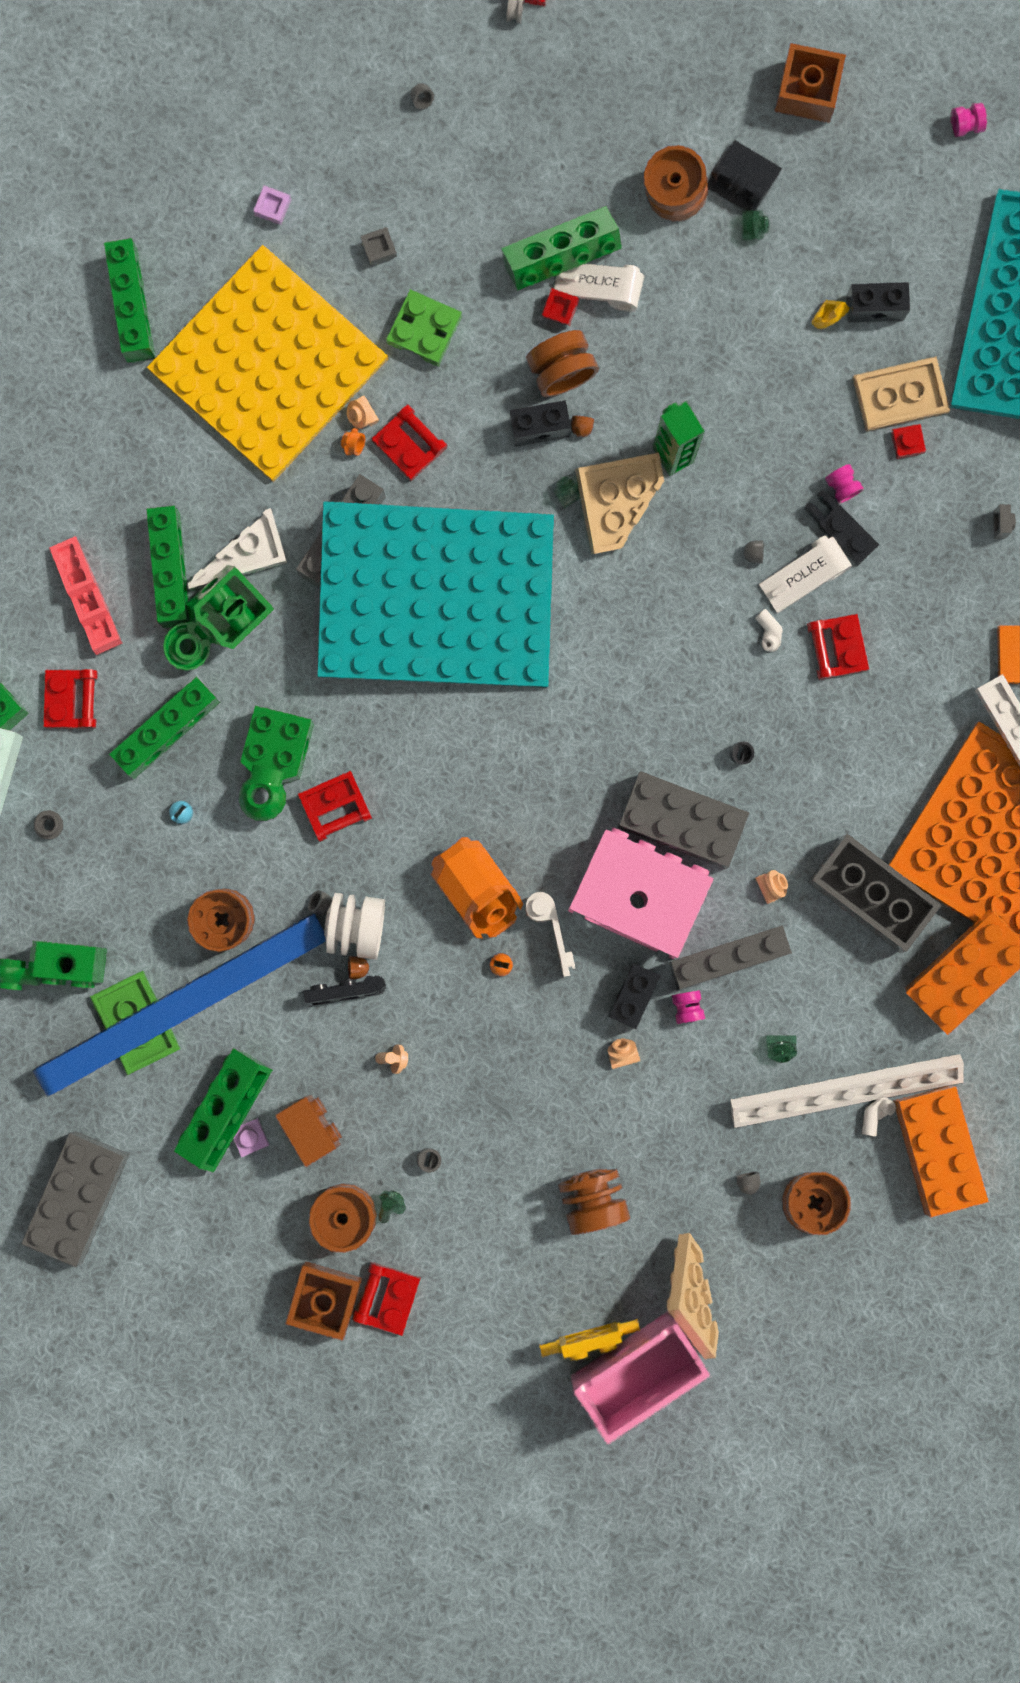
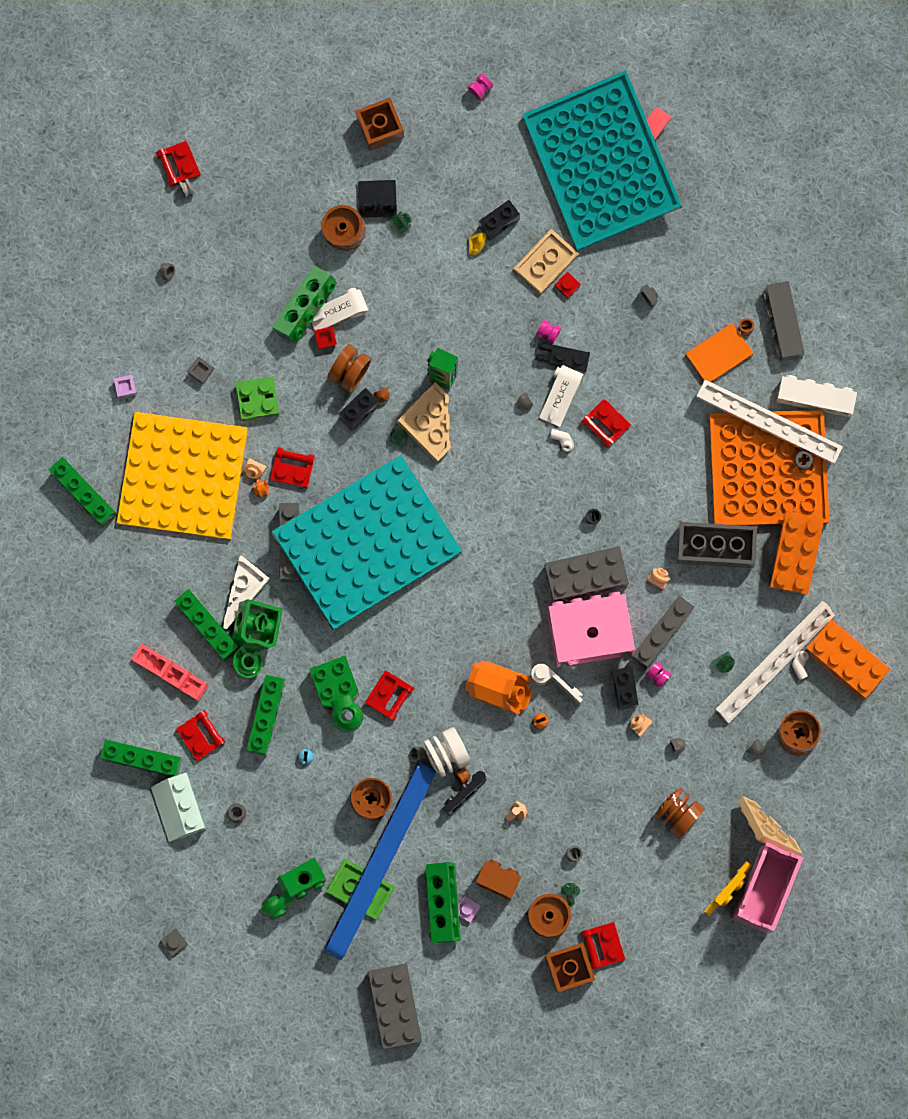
camera: 35 degrees left, 5 degrees down
(651, 1112) = (678, 745): none -> dark grey hinge

